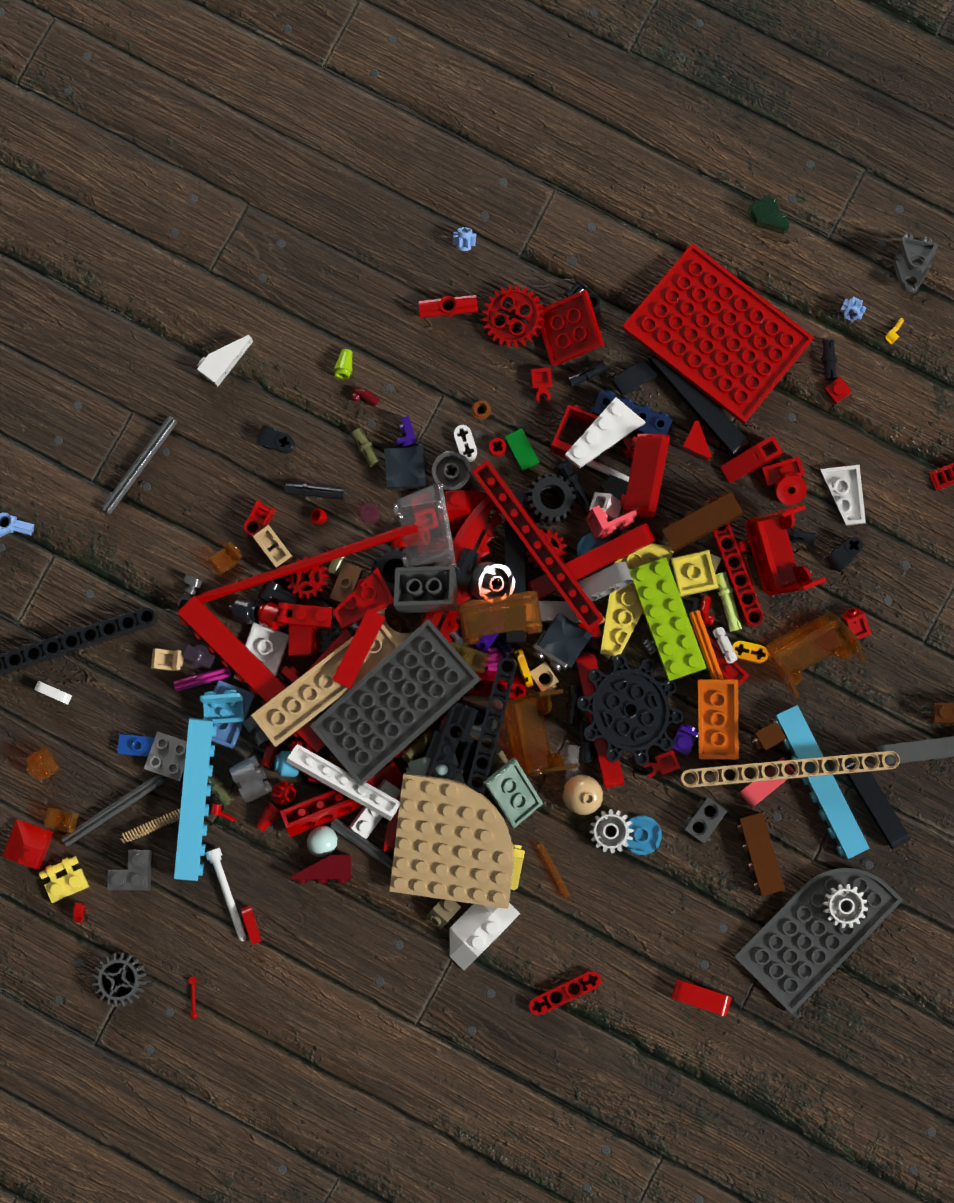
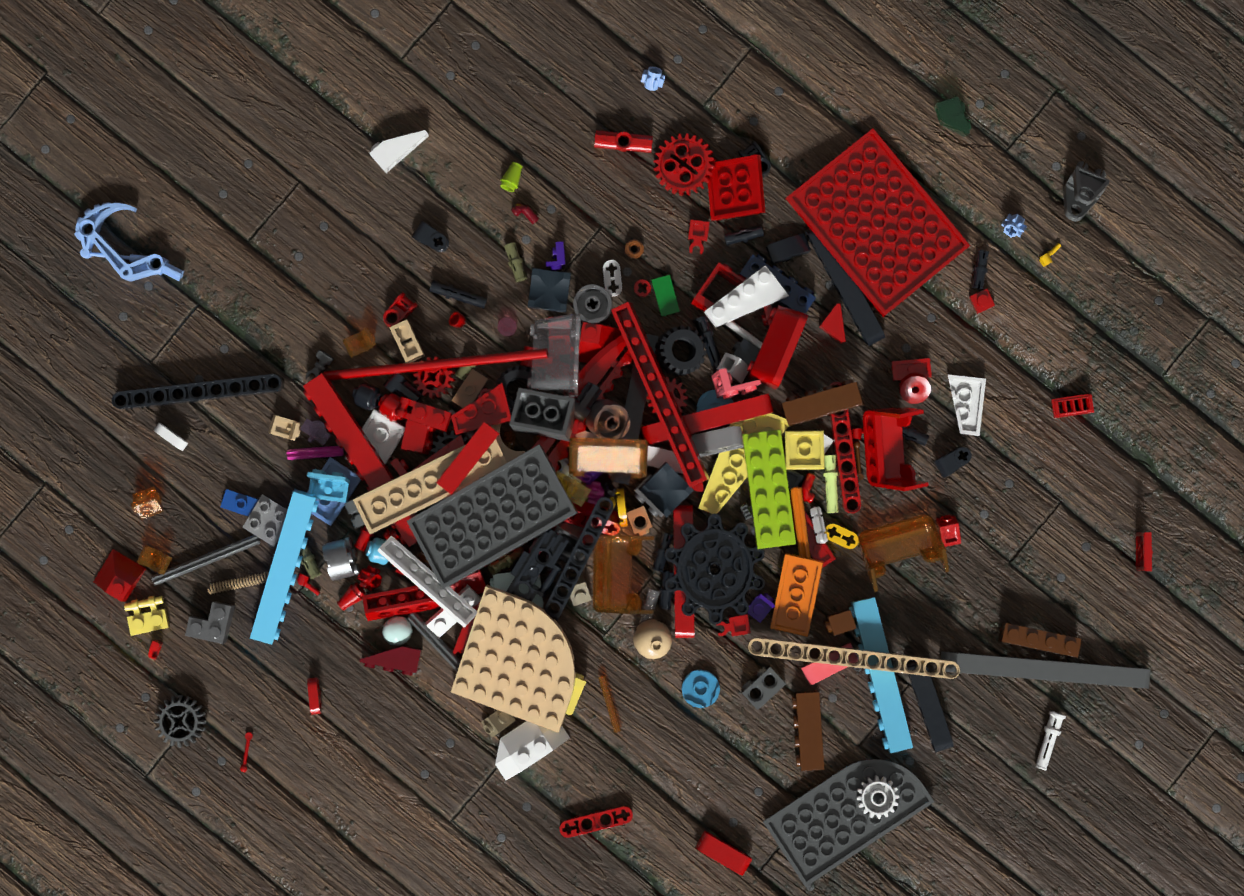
camera: 15 degrees right, 5 degrees up
(139, 465) = (295, 234): dark grey axle -> none
(214, 857) = (293, 624): white piece -> none
(513, 793) = (586, 624): sand green tile -> none
(621, 826) = (662, 681): white gear -> none
(752, 459) = (883, 352): red slope -> none

